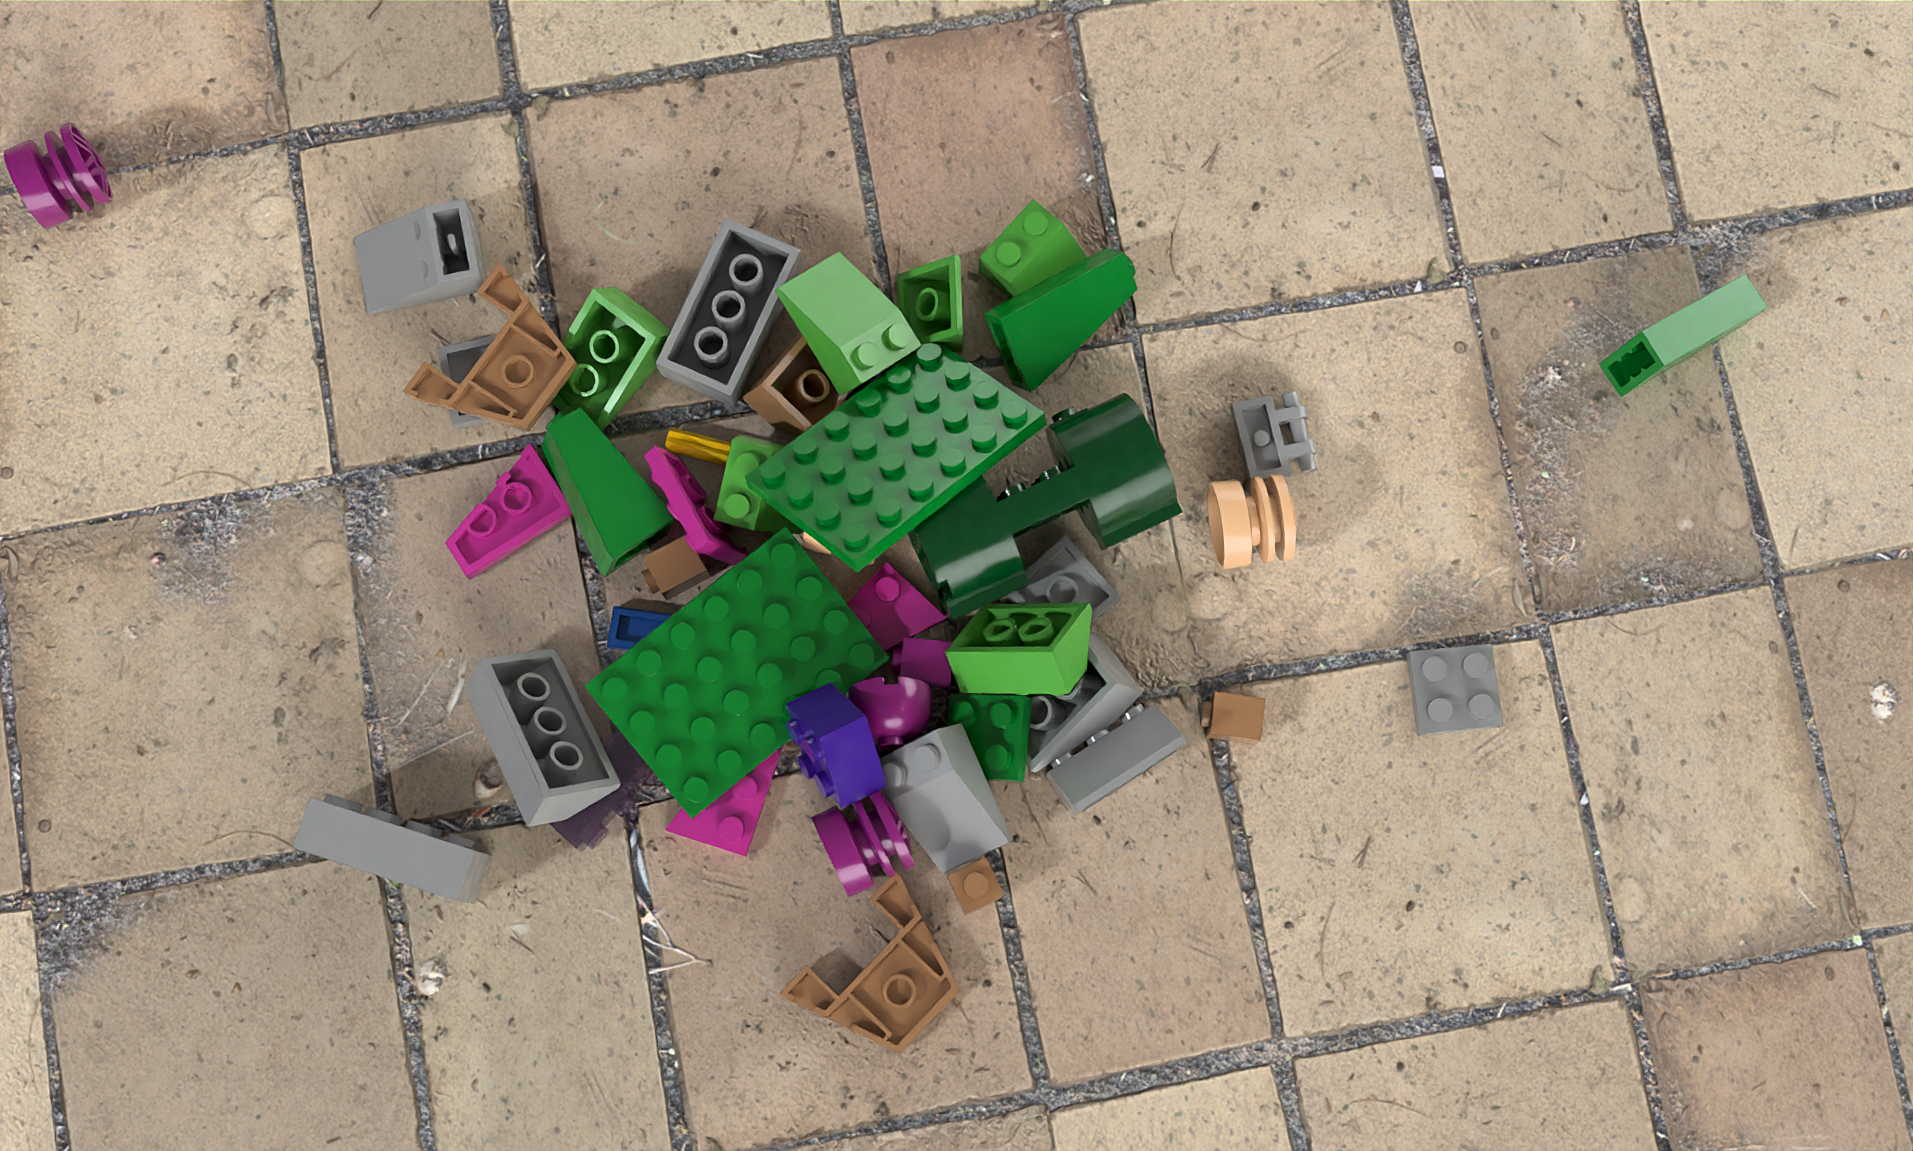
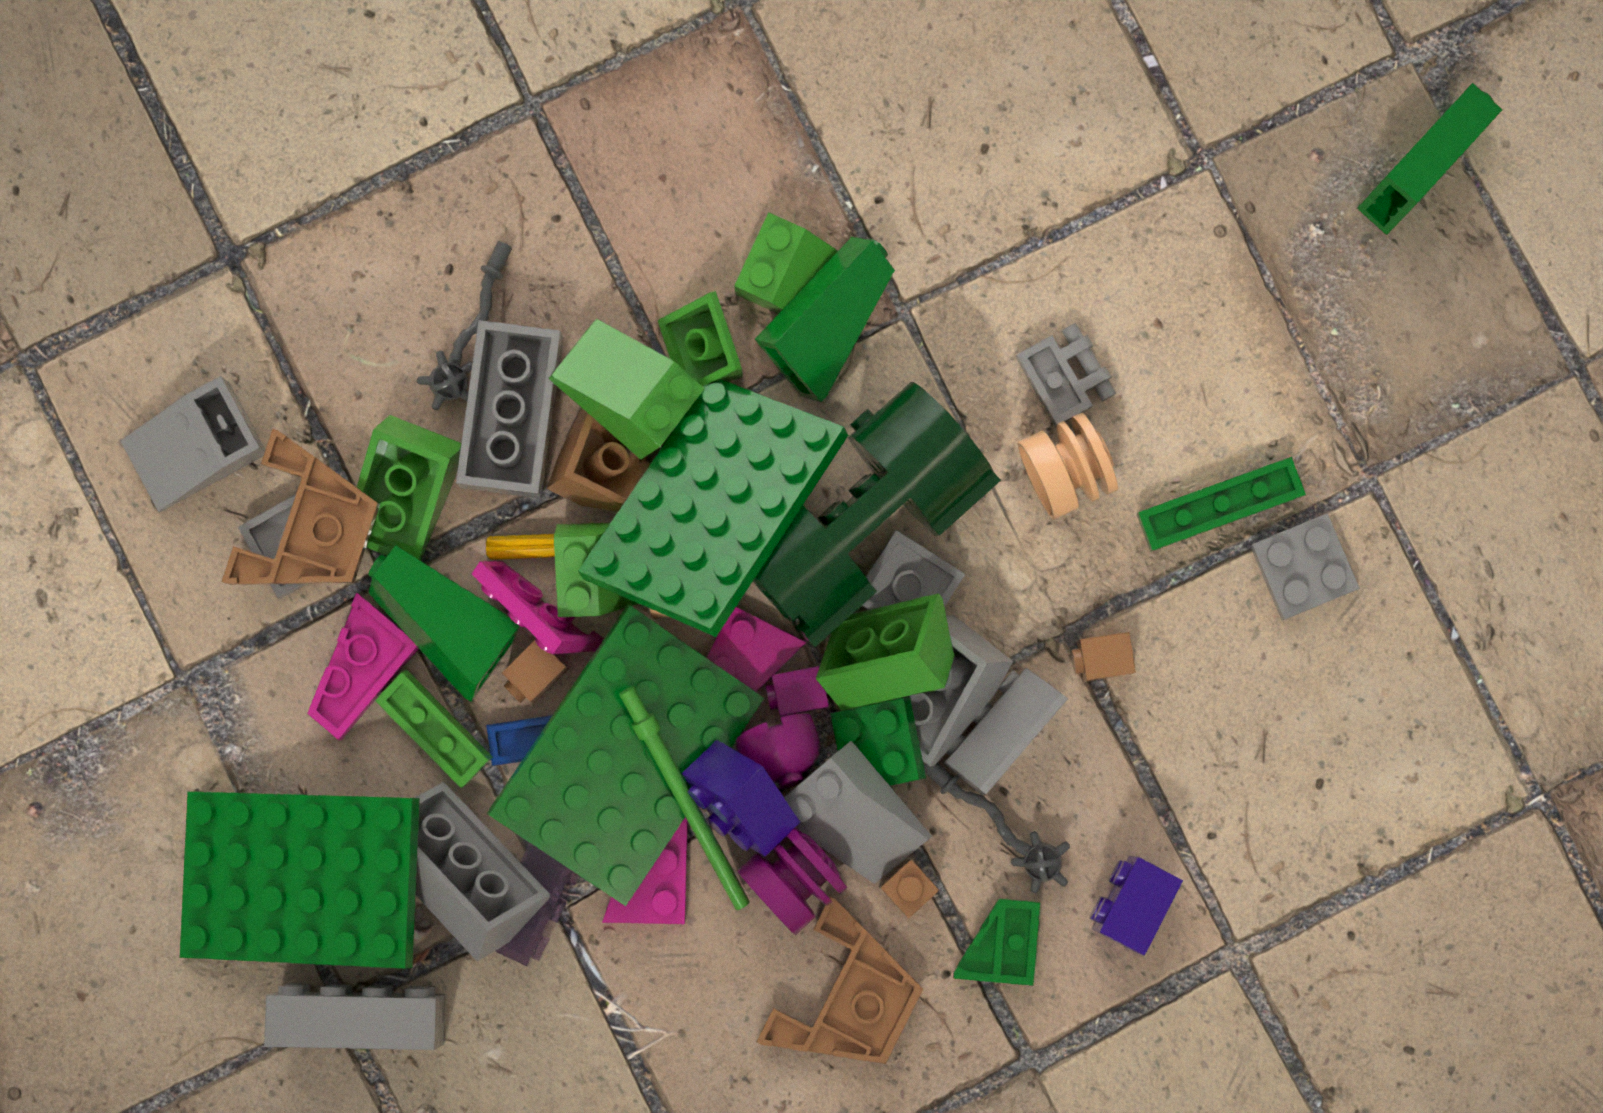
camera: 15 degrees left, 5 degrees up
(385, 697) = (300, 879): none -> green plate
(561, 594) = (434, 728): none -> bright green plate
(681, 268) = (449, 379): none -> dark grey piece
(764, 648) = (647, 729): none -> bright green bar
(1052, 971) = (1003, 945): none -> green wing
(1114, 898) = (1040, 860): none -> dark grey piece
(1195, 968) = (1135, 904): none -> dark purple brick
(1389, 604) = (1221, 504): none -> green plate

